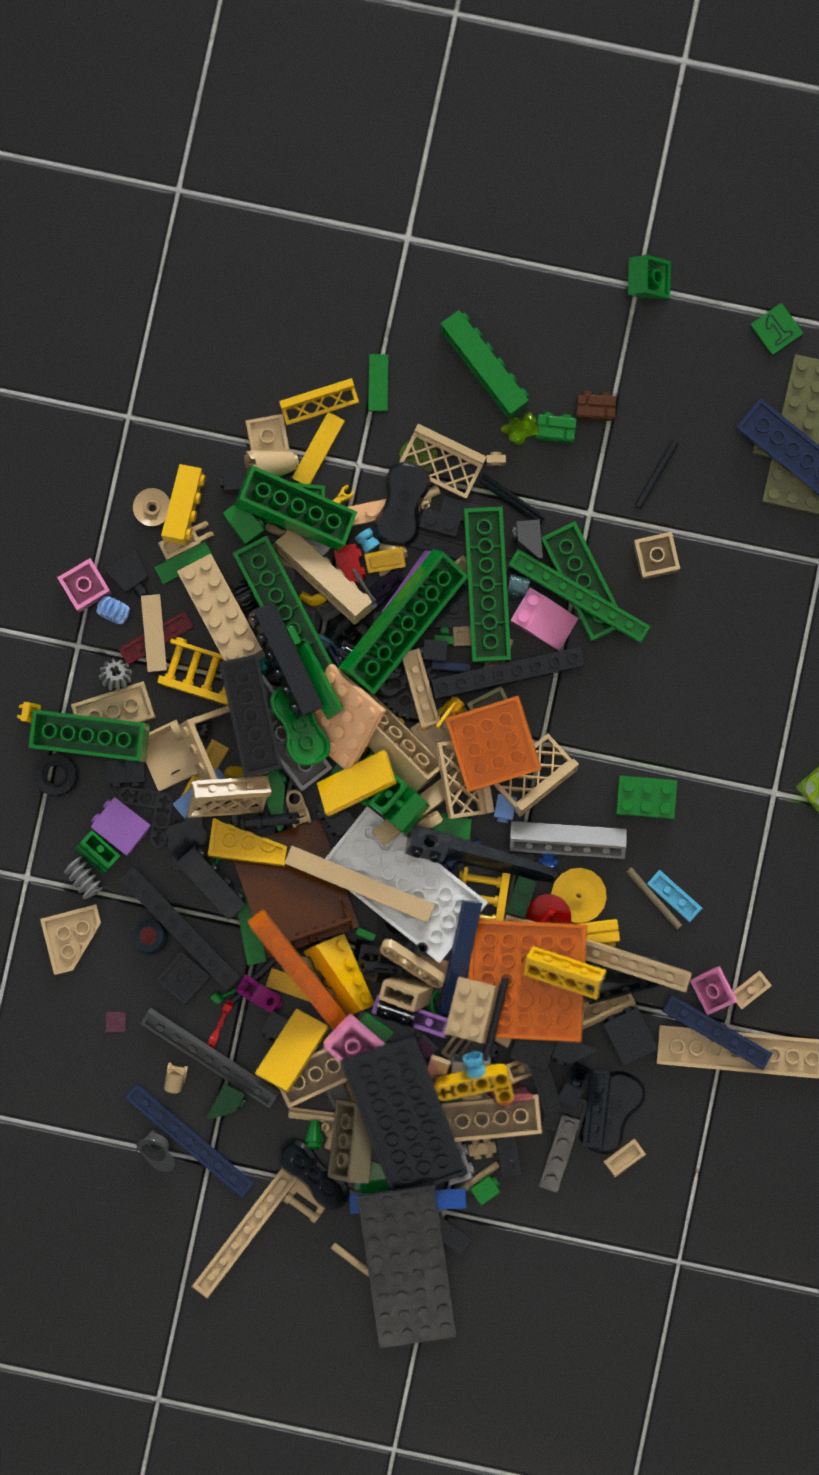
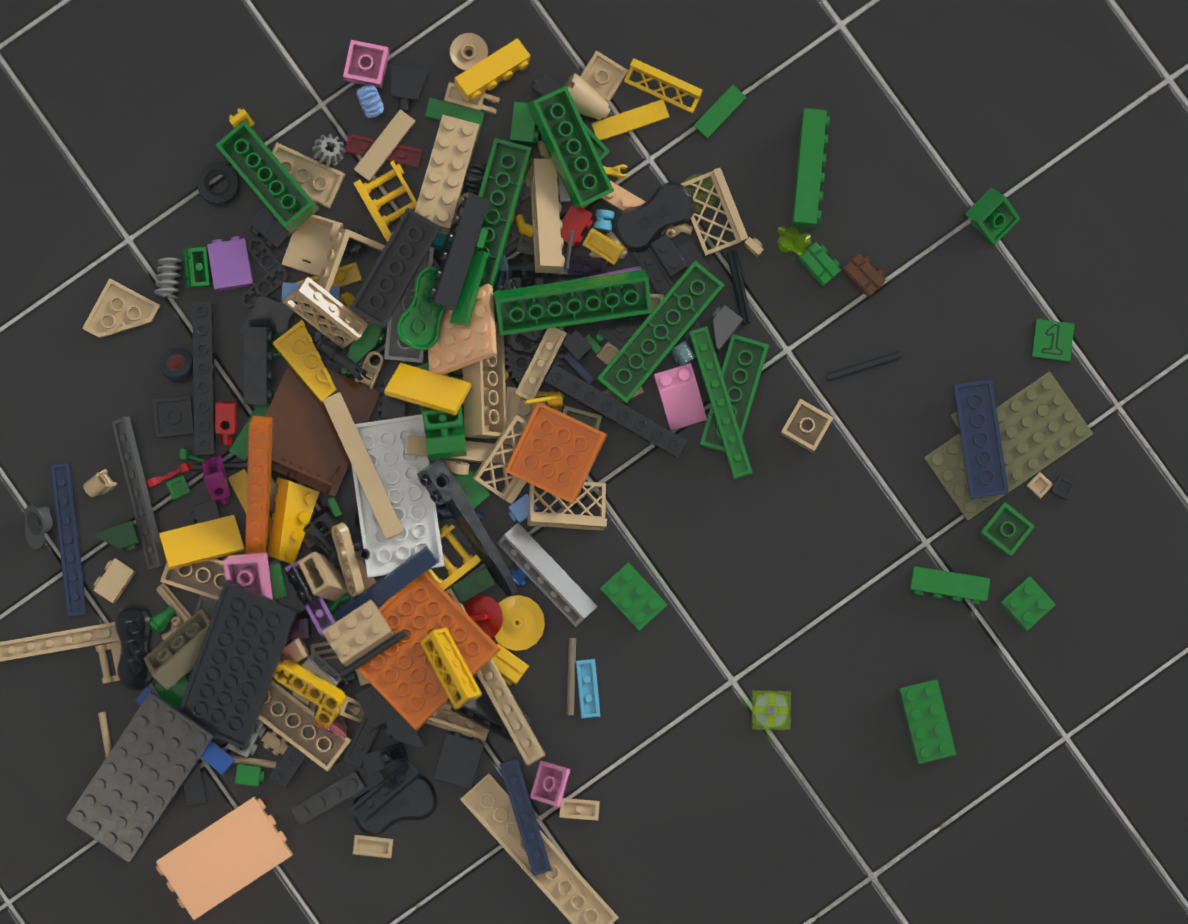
camera: 45 degrees right, 0 degrees up
(115, 1021) = (95, 404): clear pink tile -> none
(220, 937) = (228, 412): none -> red torso
(235, 1026) = (178, 487): none -> green tile
(252, 1139) = (114, 580): none -> tan brick
(474, 1065) = (322, 673): medium azure wheel -> none
(524, 1268) = (224, 858): none -> light nougat panel

